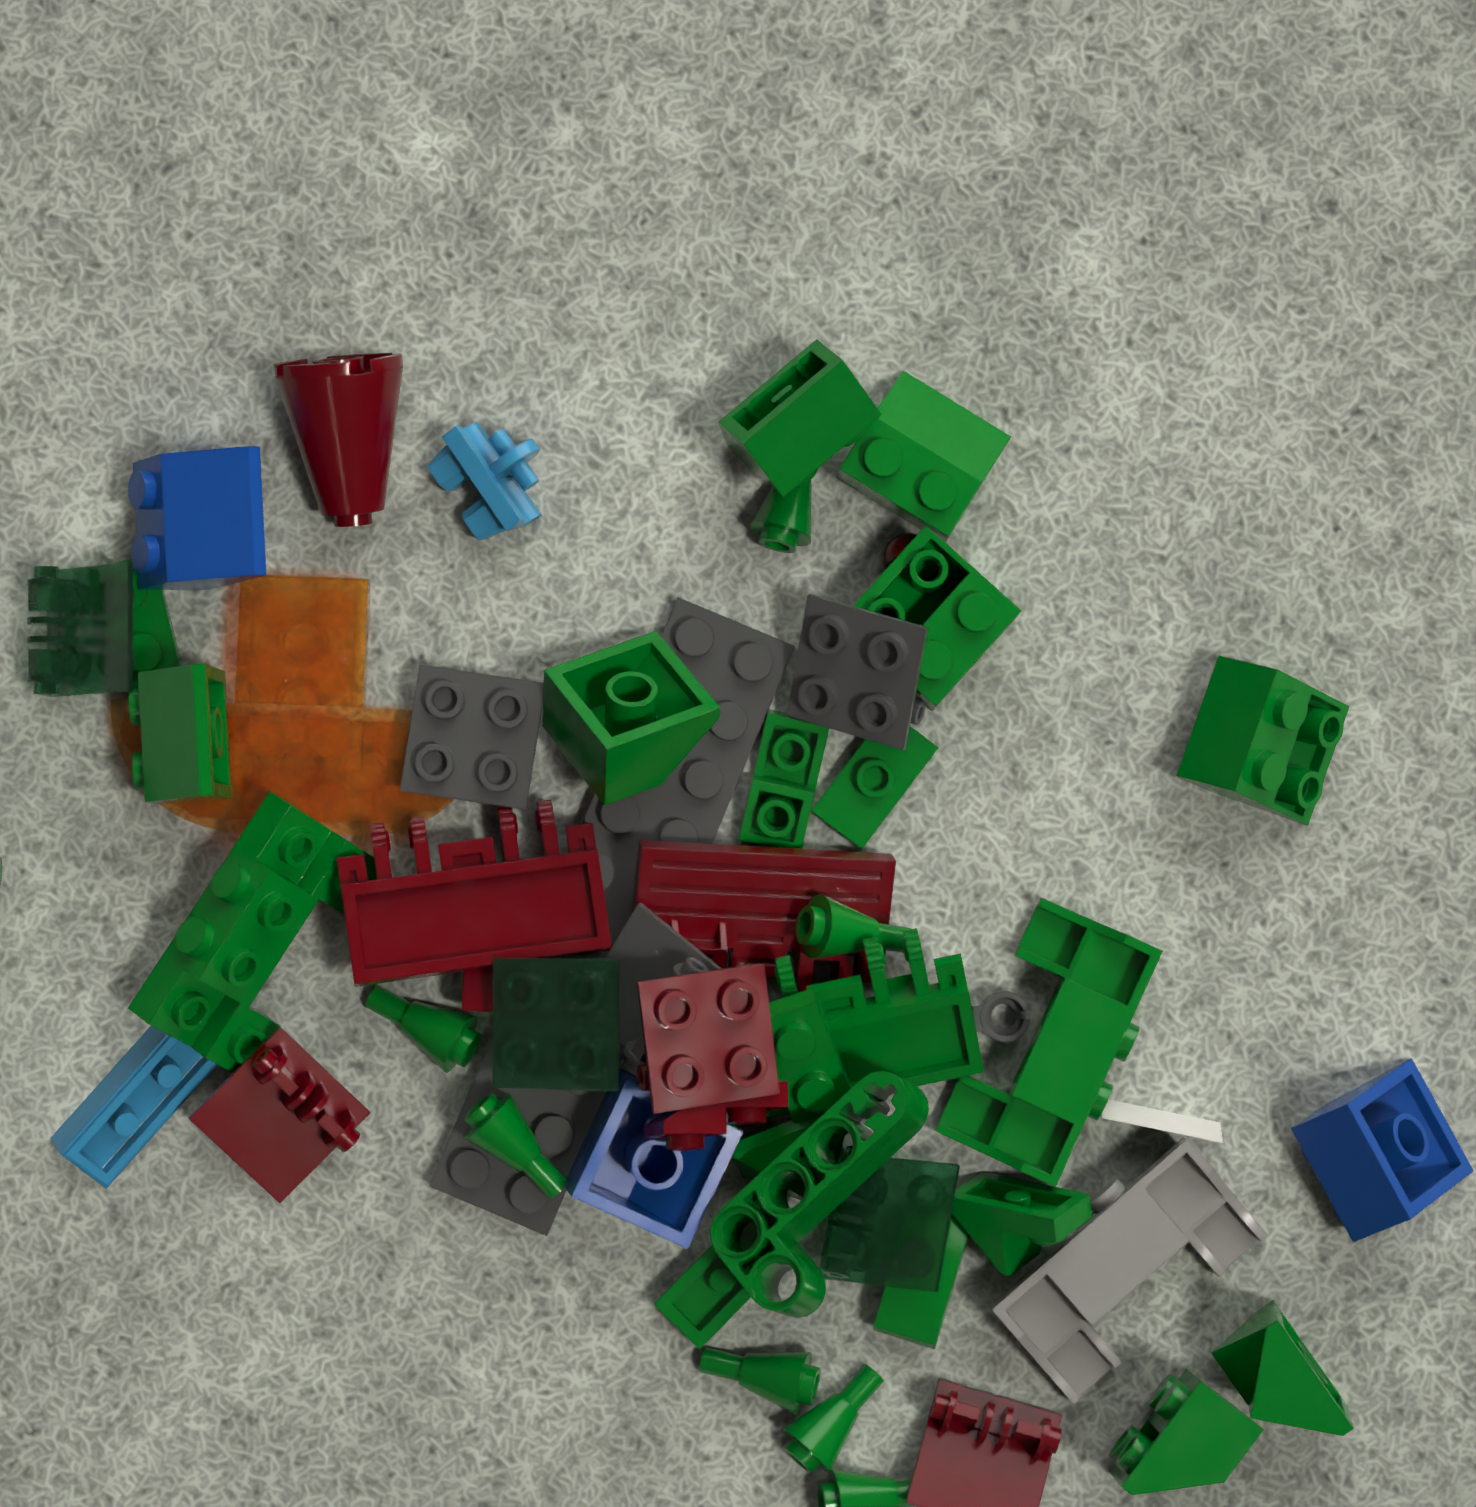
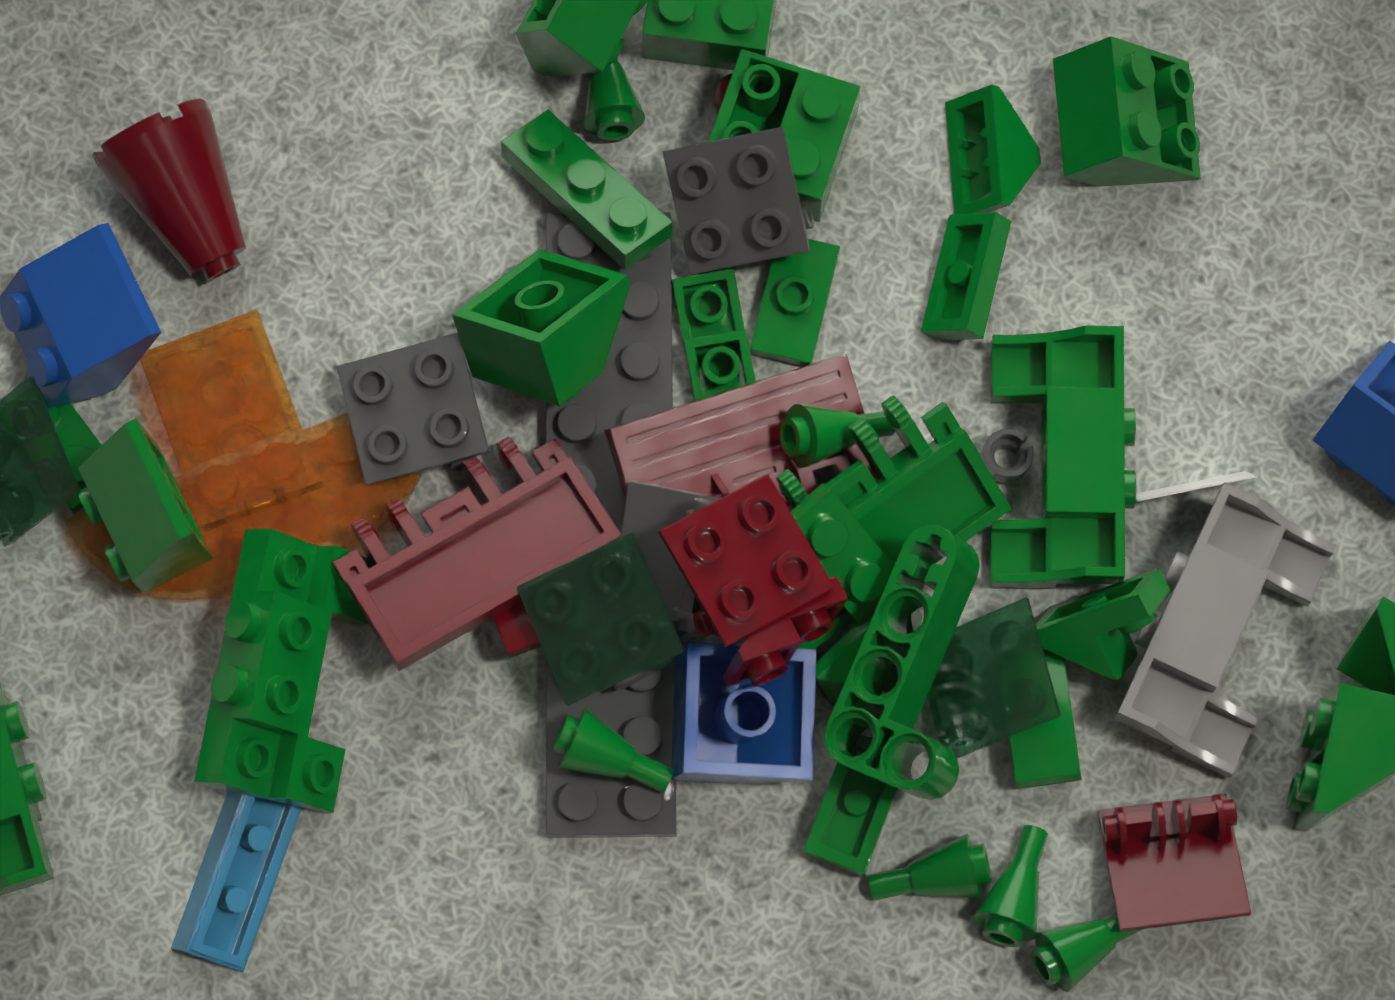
camera: 20 degrees left, 10 degrees down
(280, 1115) = (379, 828): dark red hinge -> none
(440, 1033) = (495, 690): green cone -> none
(498, 473) = (305, 170): dark azure hips -> none
(724, 592) = (586, 189): none -> green plate
(1042, 829) = (966, 276): none -> green plate
(1119, 717) = (987, 151): none -> green slope

